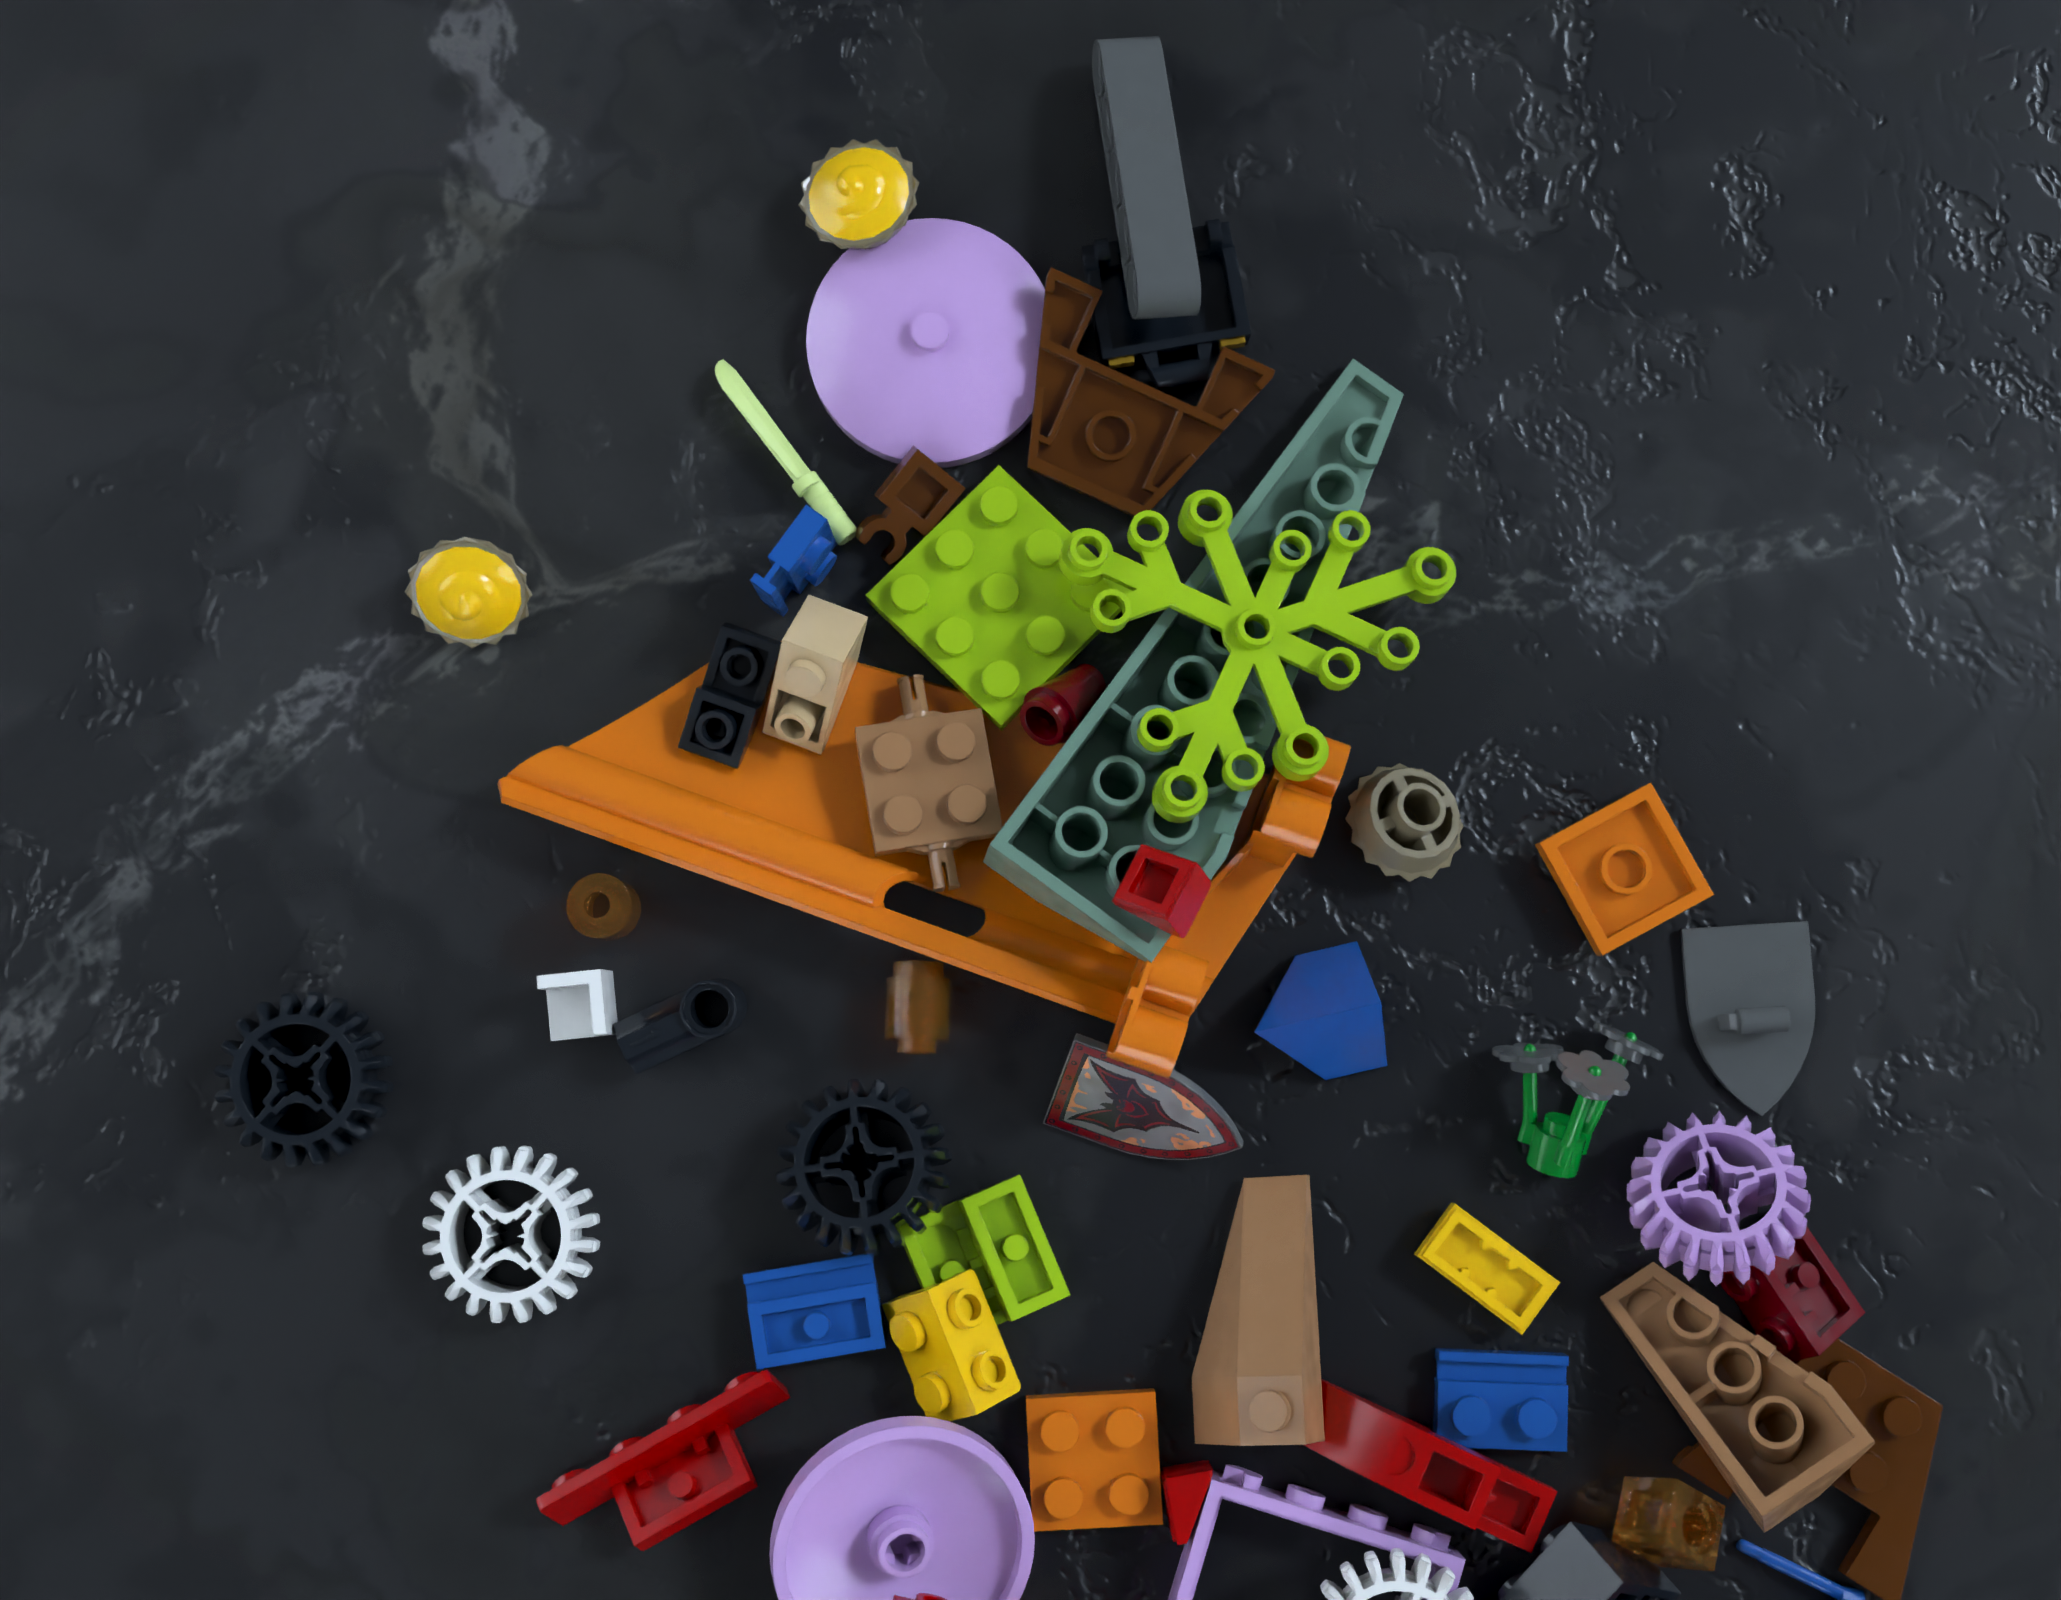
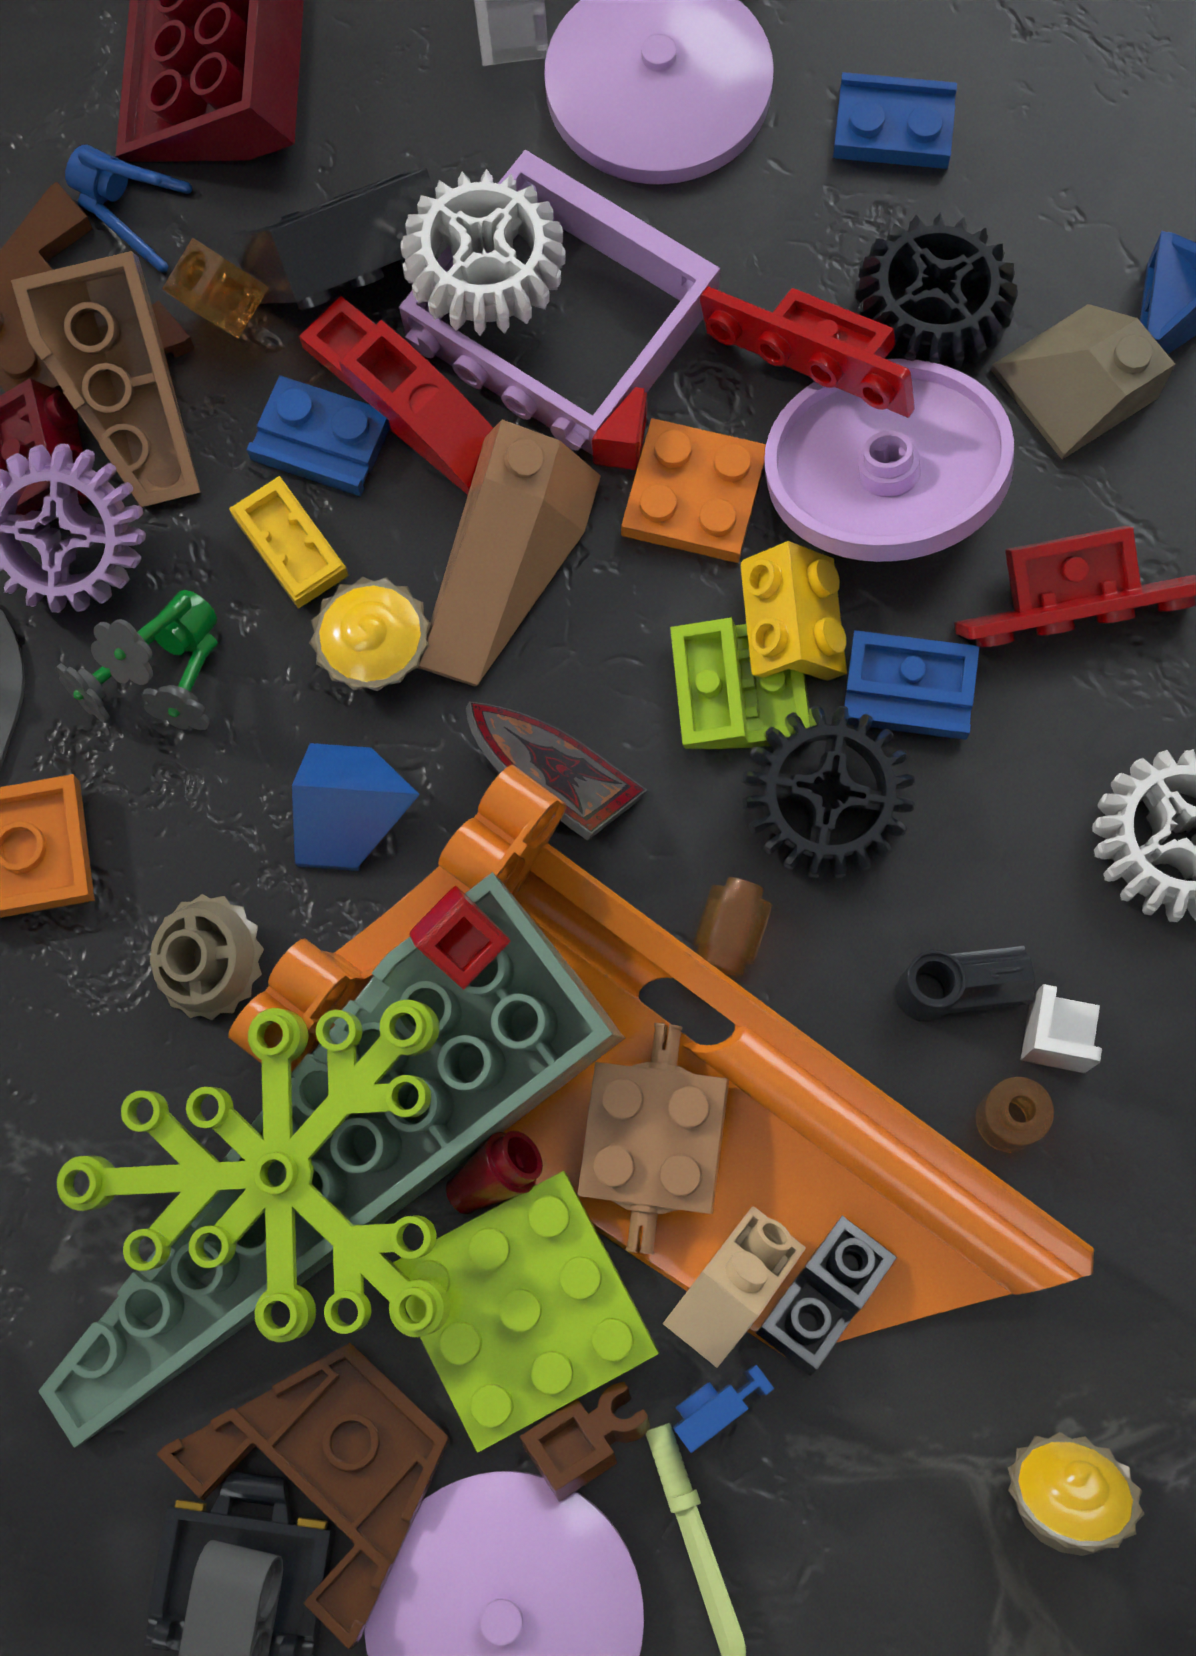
camera: 155 degrees left, 10 degrees down
(1365, 1190) = (370, 634): none -> yellow piece

